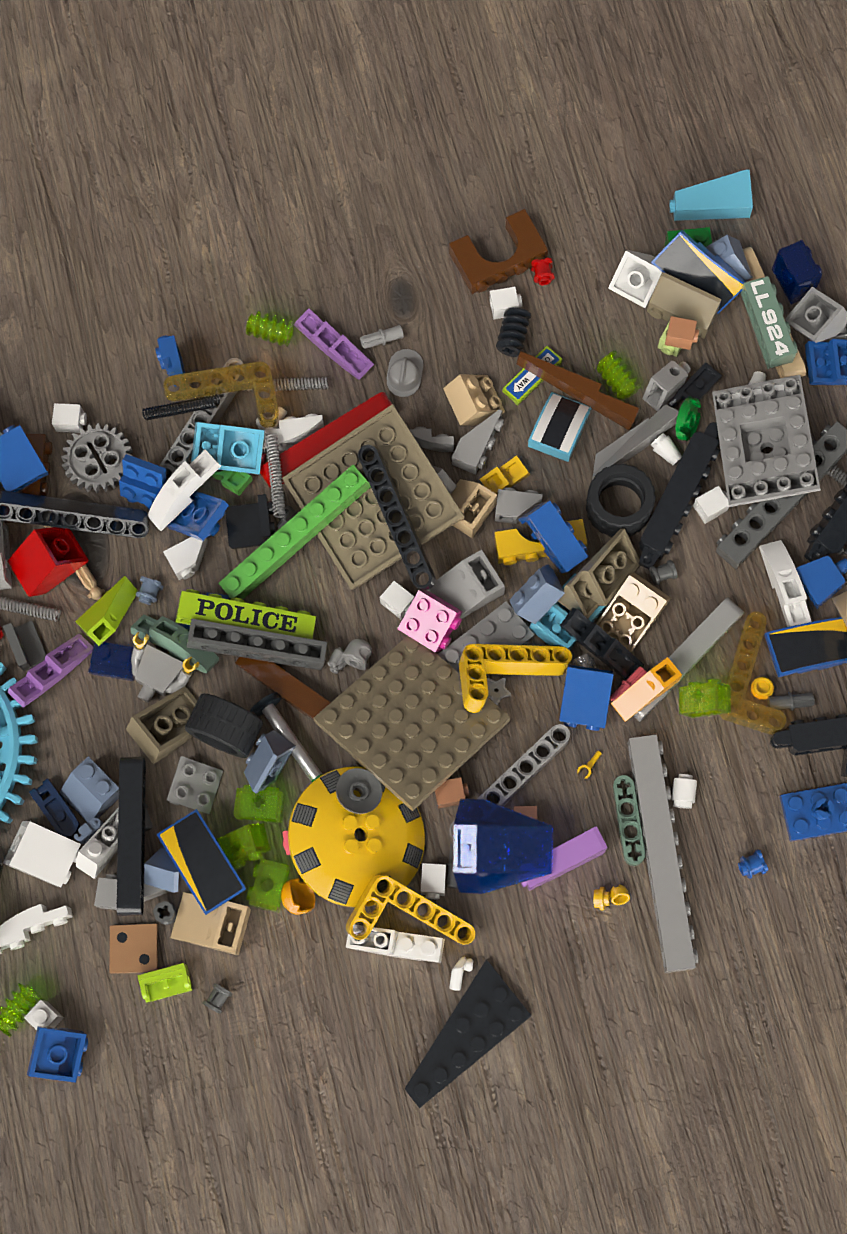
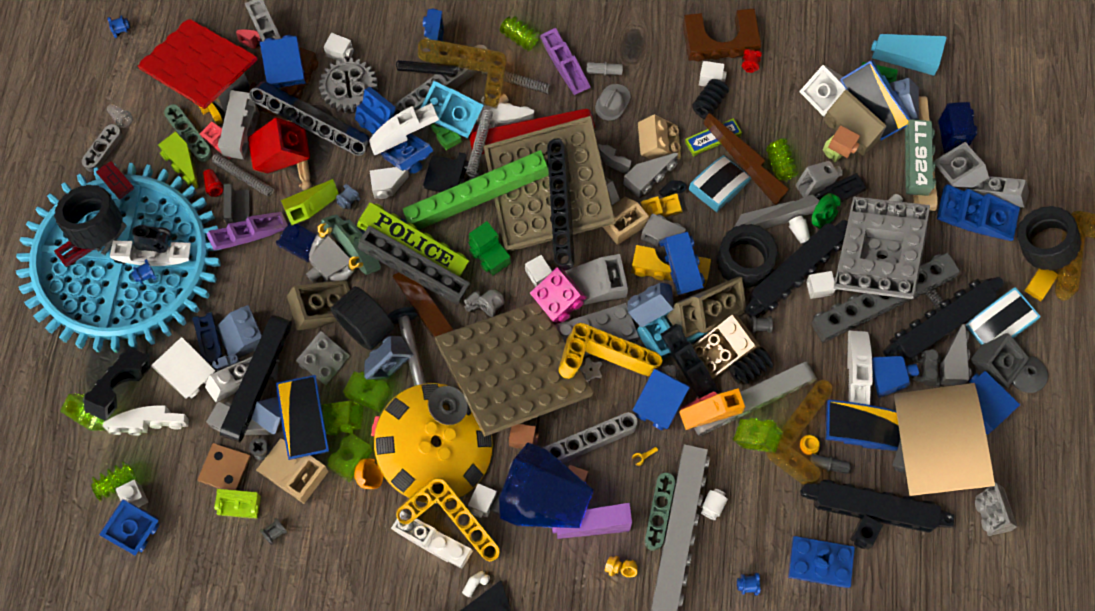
camera: 15 degrees right, 5 degrees down
(330, 594) = (486, 247): none -> green brick
(509, 448) = (673, 186): none -> black arm
(667, 623) = (750, 364): none -> black piece

